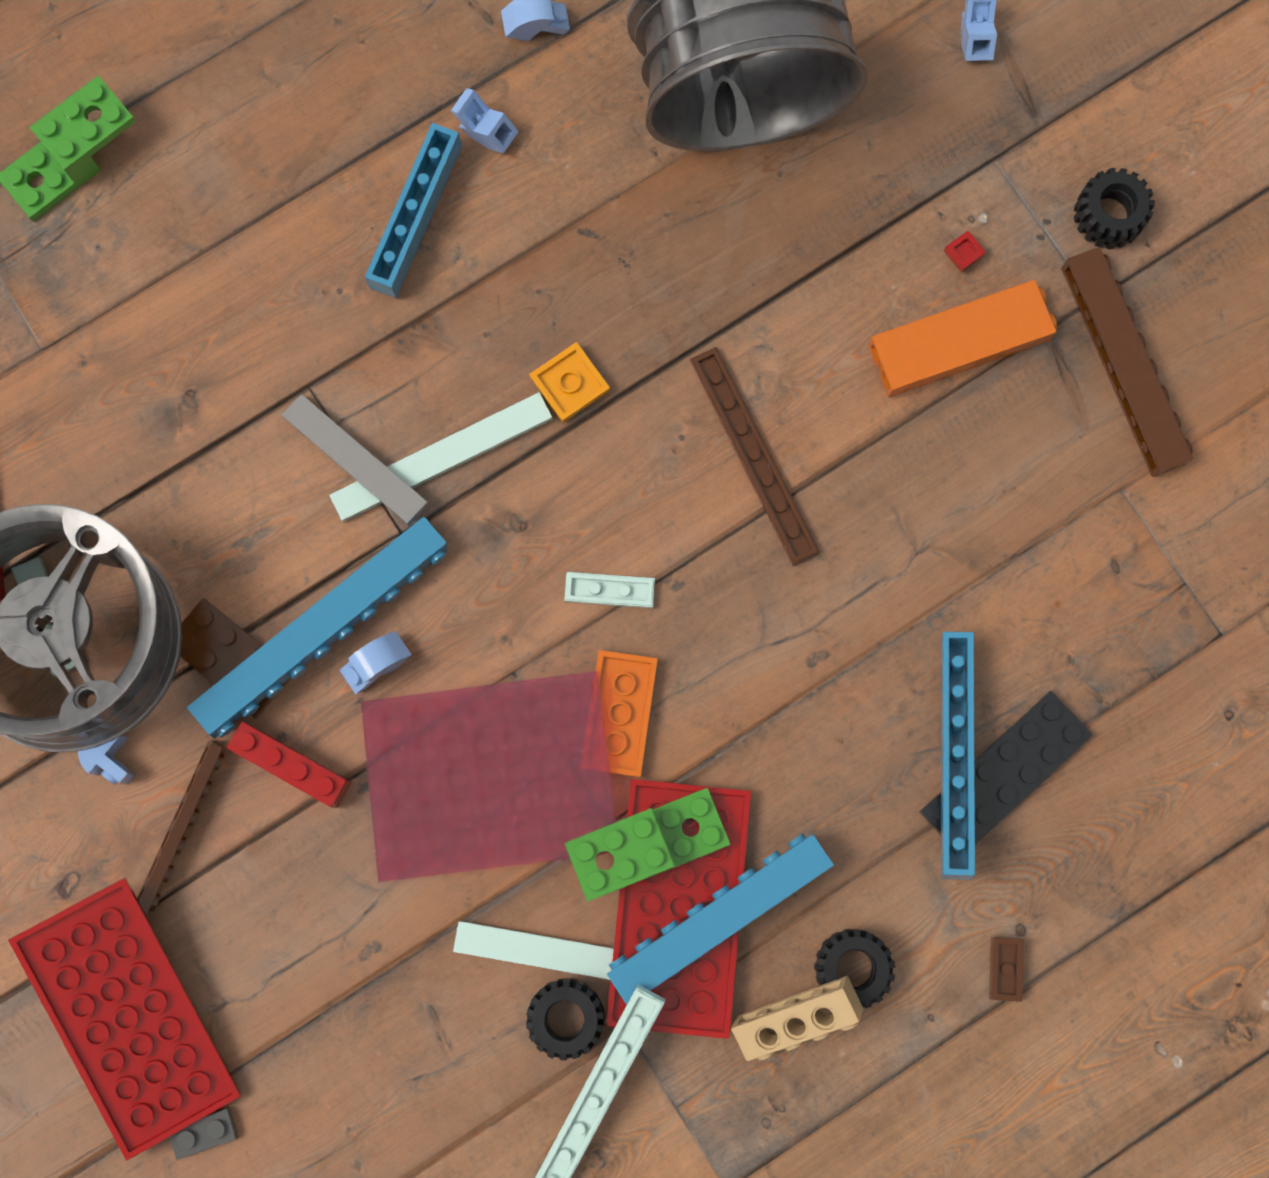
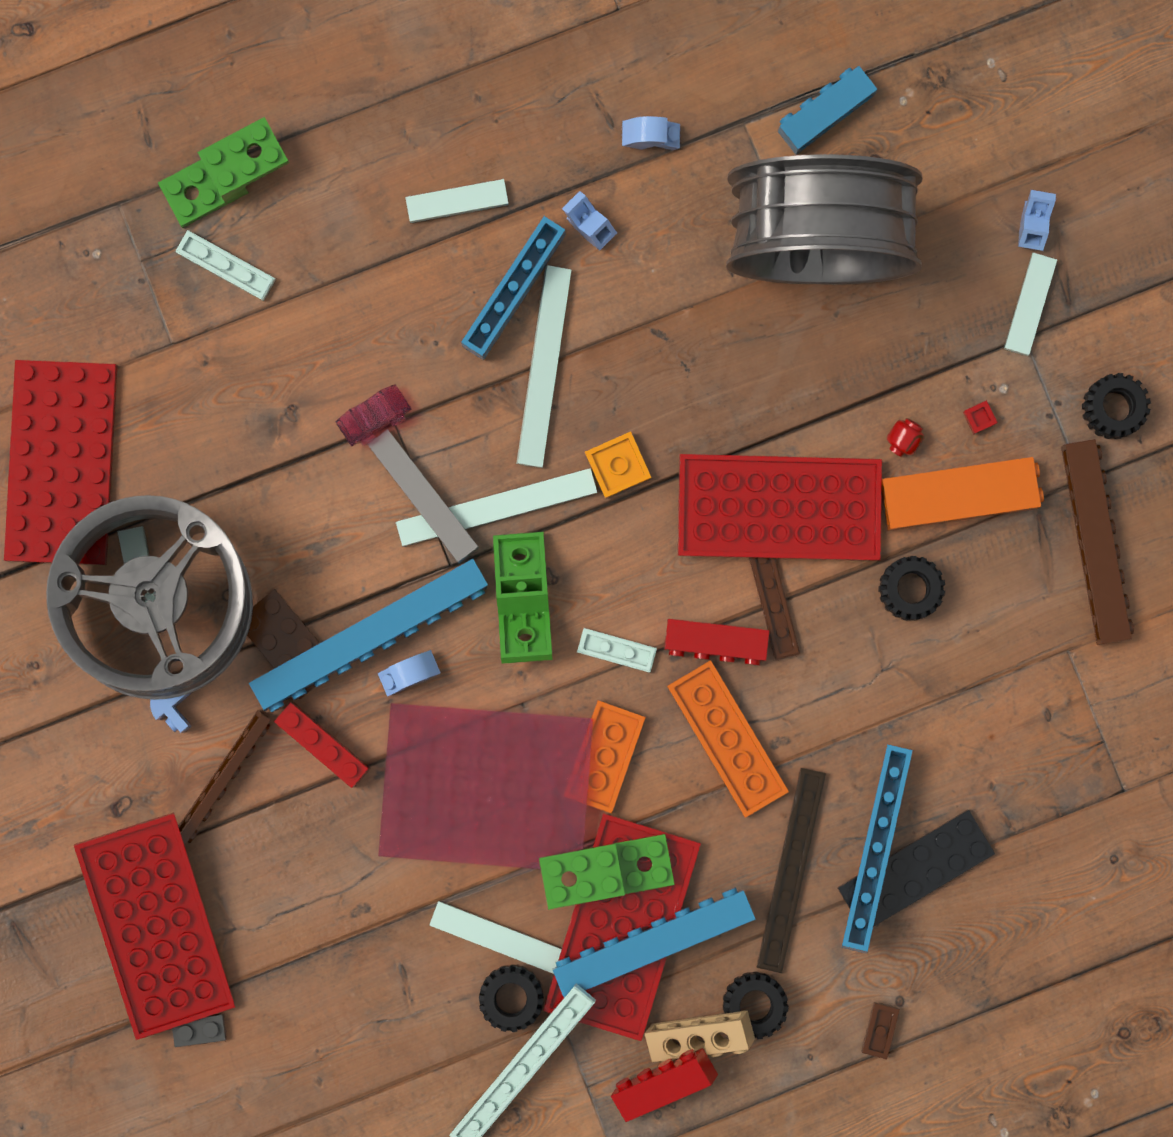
camera: 10 degrees right, 5 degrees up
(87, 252) = (225, 265): none -> light aqua tile
(282, 381) = (373, 416): none -> clear pink brick
(334, 132) = (457, 201): none -> light aqua tile
(465, 292) = (543, 366): none -> light aqua tile
(489, 550) = (522, 597): none -> bright green bracket
(721, 555) = (716, 640): none -> red brick
(757, 665) = (727, 739): none -> orange plate
(761, 392) = (779, 507): none -> red plate
(767, 1085) = (664, 1084): none -> red brick
(861, 803) = (791, 870): none -> dark brown tile
(886, 288) = (905, 437): none -> red head
(944, 433) = (931, 578): none -> black tyre
(992, 121) = (1030, 304): none -> light aqua tile

